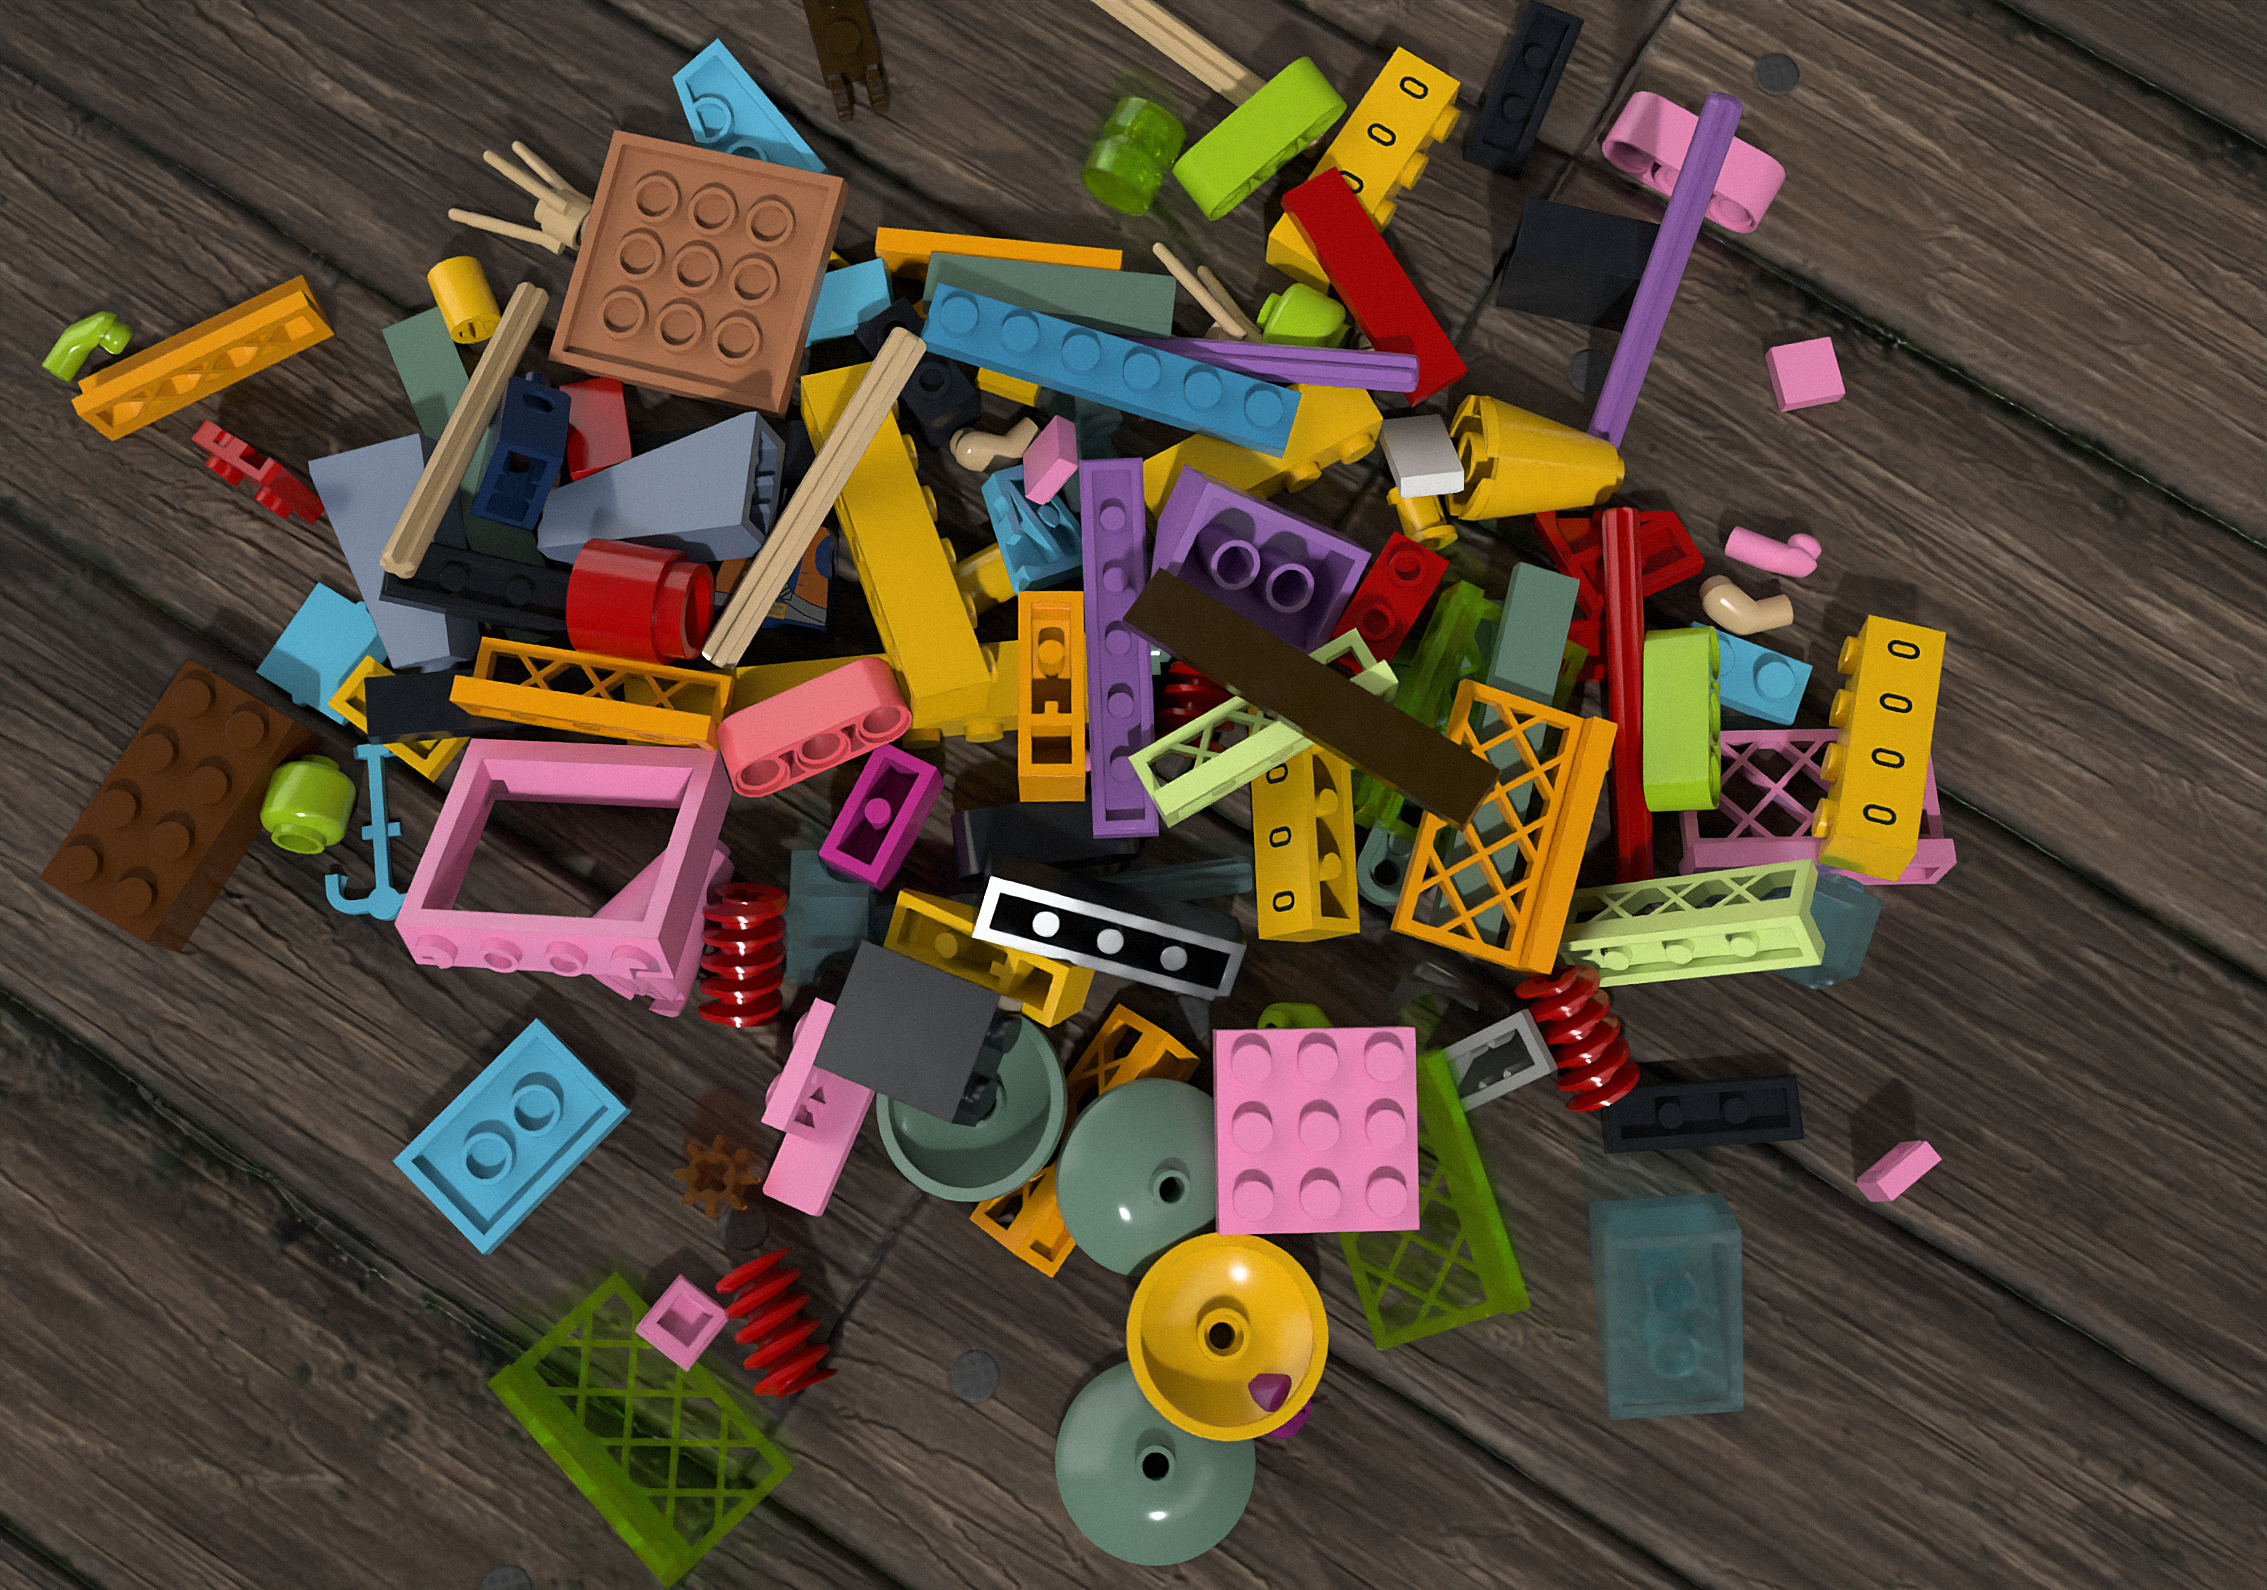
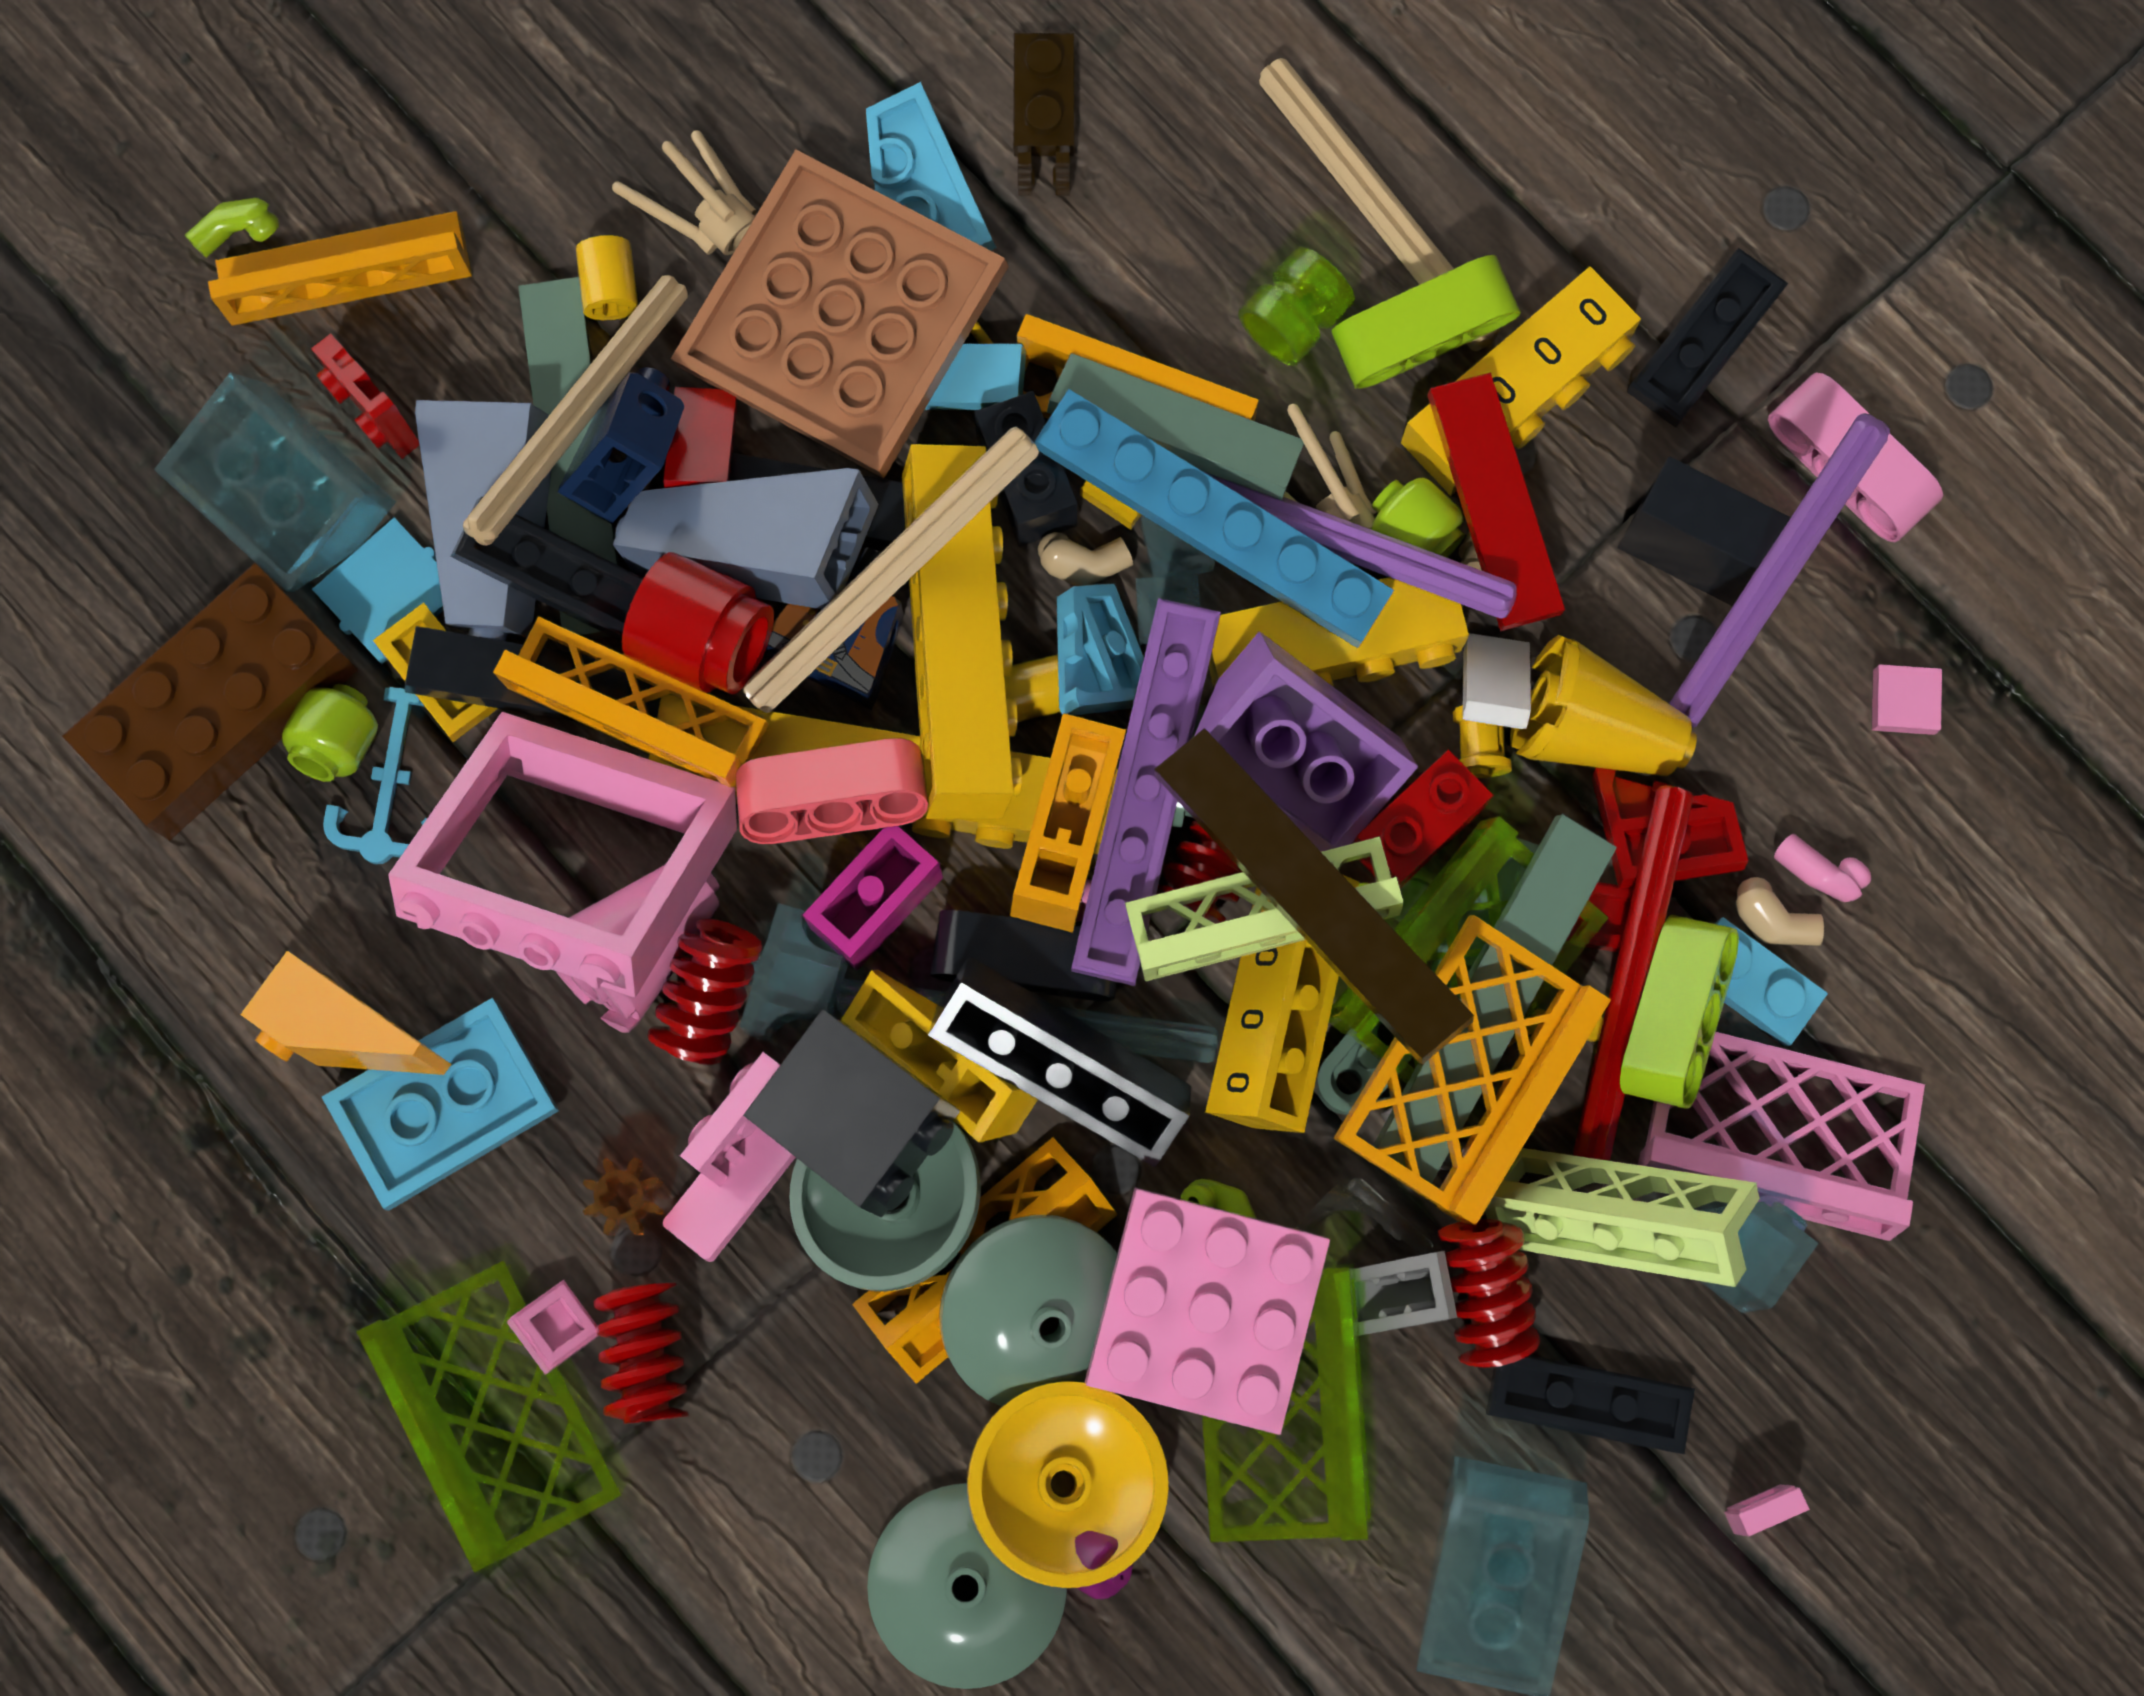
camera: 15 degrees right, 0 degrees up
(188, 578) = (273, 483): none -> clear light blue slope
(382, 1090) = (330, 1026): none -> light orange slope
(1050, 460) = (1131, 589): bright pink tile -> none
(1880, 748) = (1867, 1093): yellow brick -> none

